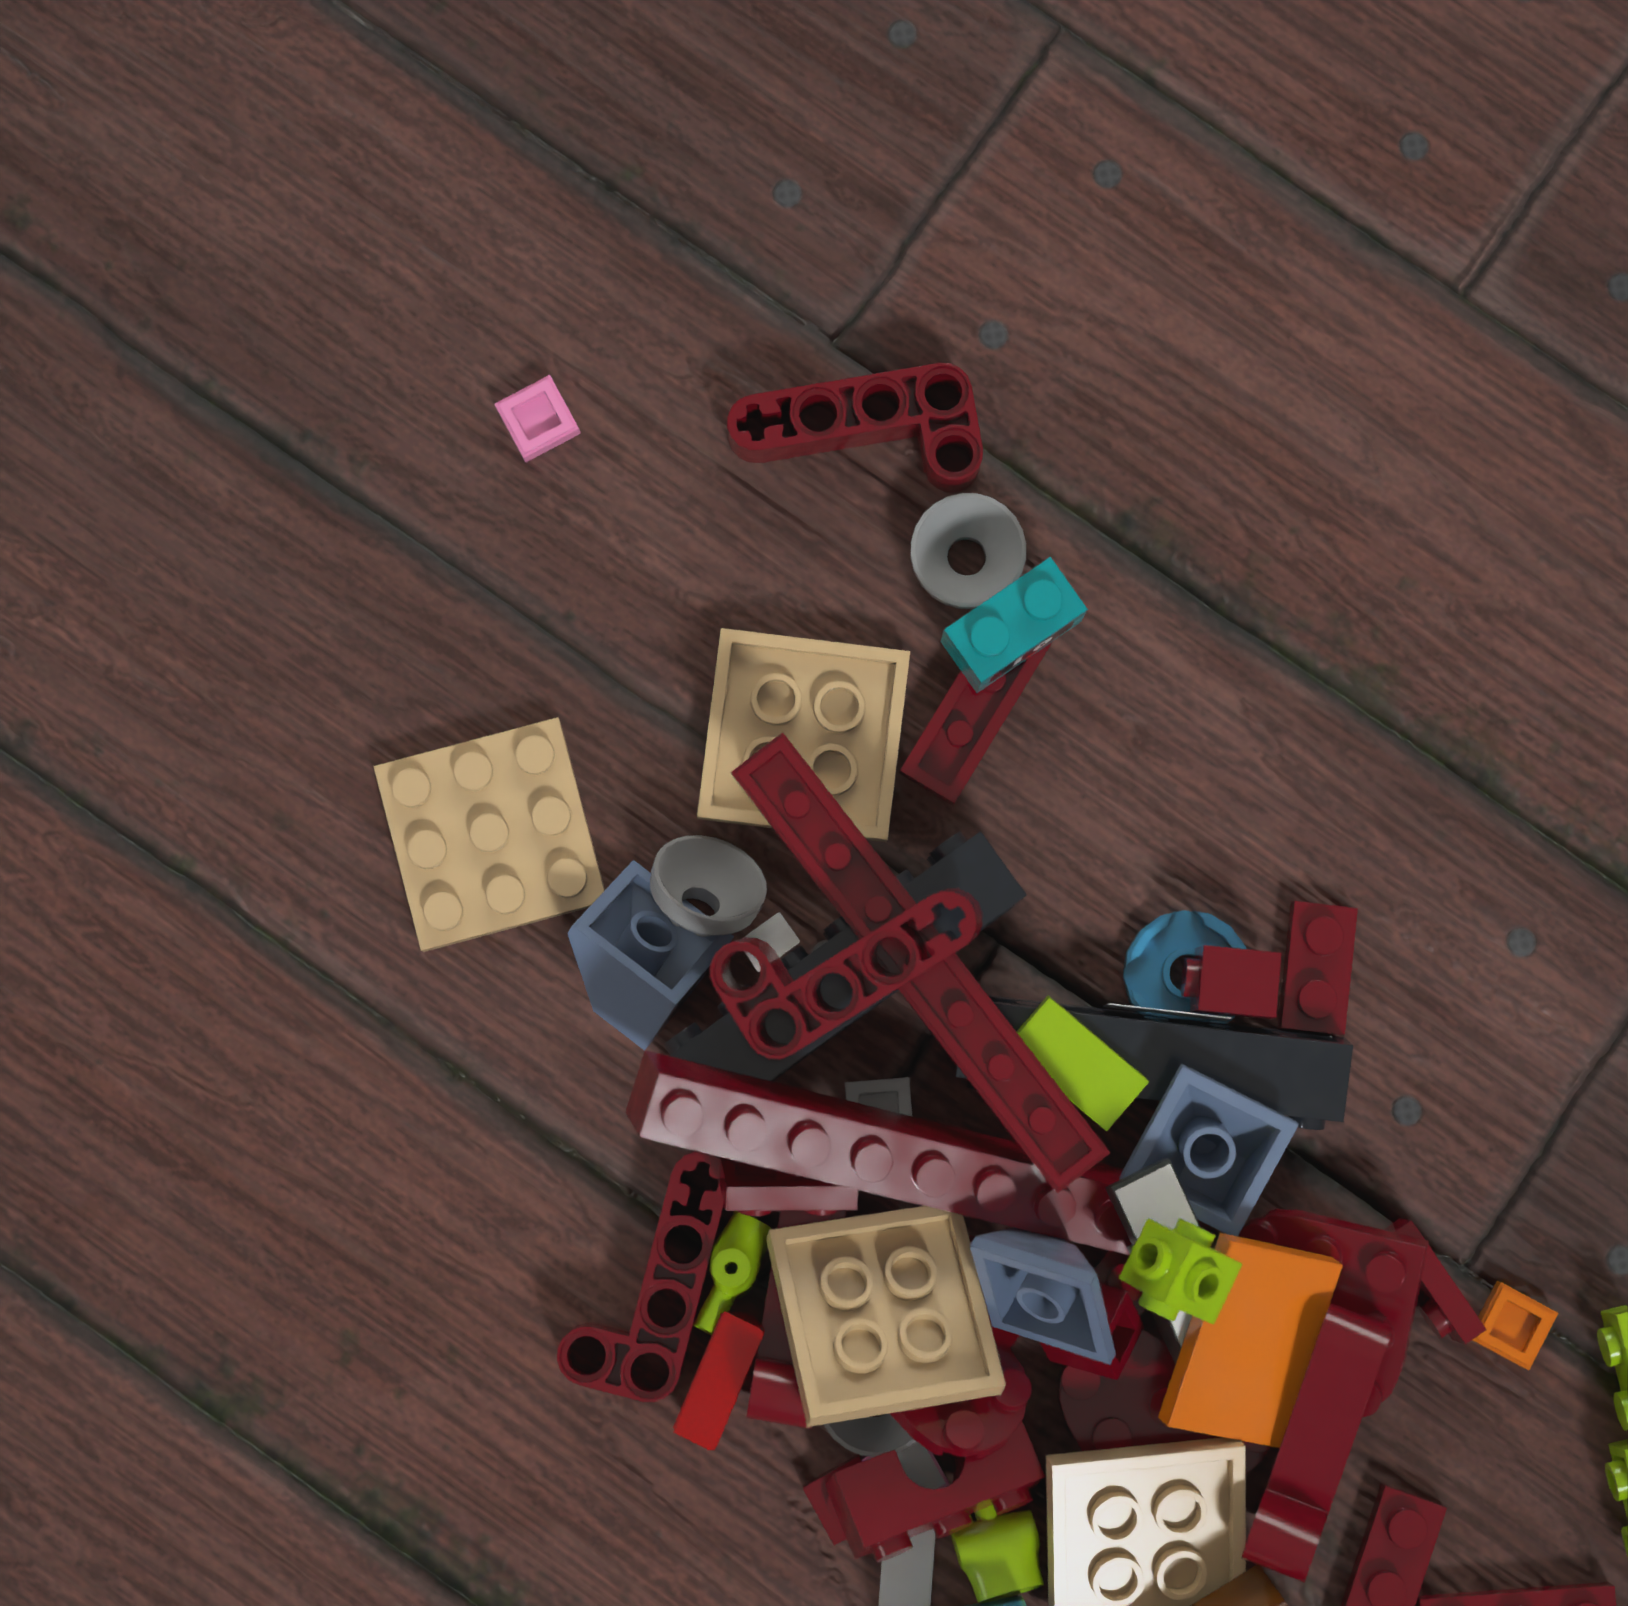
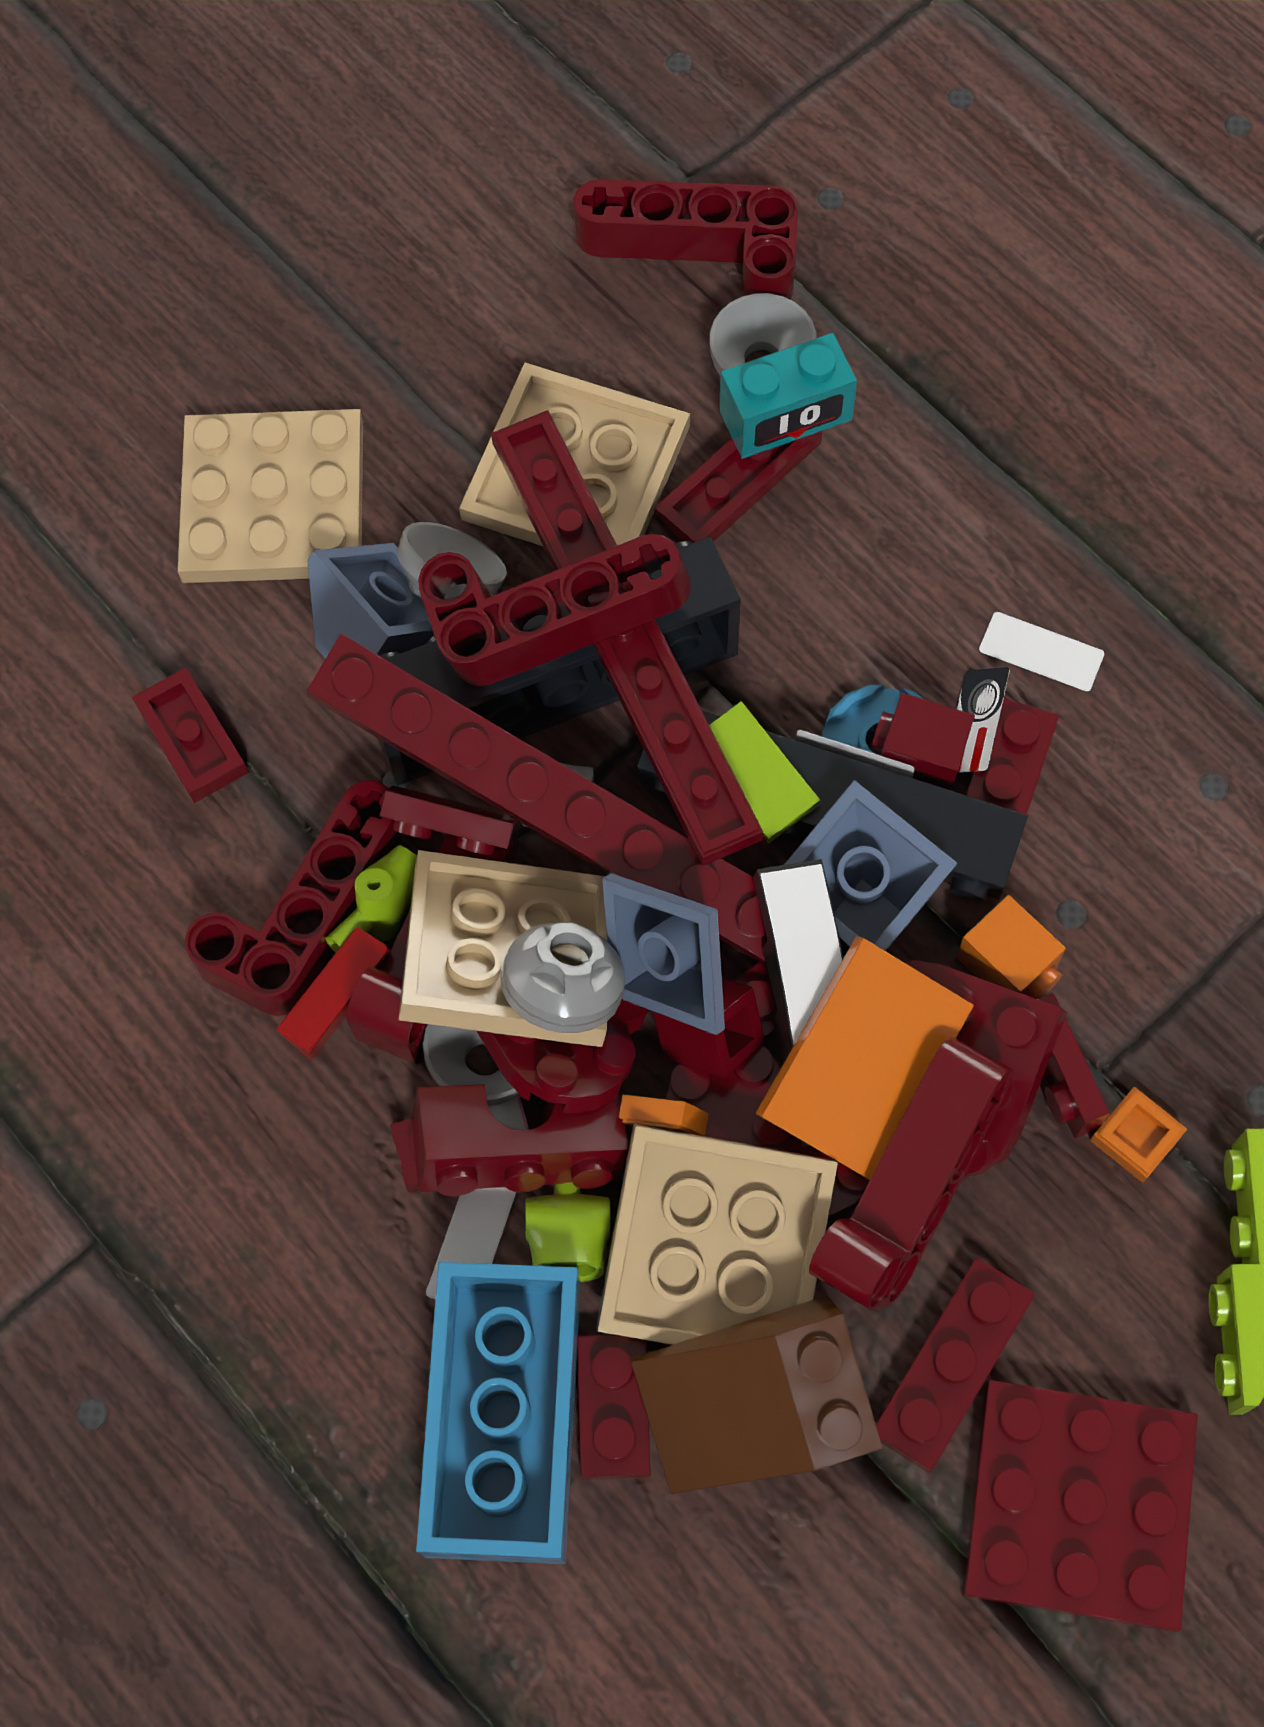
camera: 20 degrees right, 15 degrees down
(488, 1129) = (190, 735): none -> dark red plate
(537, 418) = (414, 183): bright pink tile -> none
(941, 1369) = (560, 994): none -> light grey piece
(1068, 1433) = (663, 1114): none -> orange tile
(1180, 1271) = (805, 948): lime brick -> none
(1277, 919) = (982, 696): none -> sticker
(1324, 831) = (1042, 651): none -> white sticker
(1362, 1178) = (1012, 951): none -> orange brick

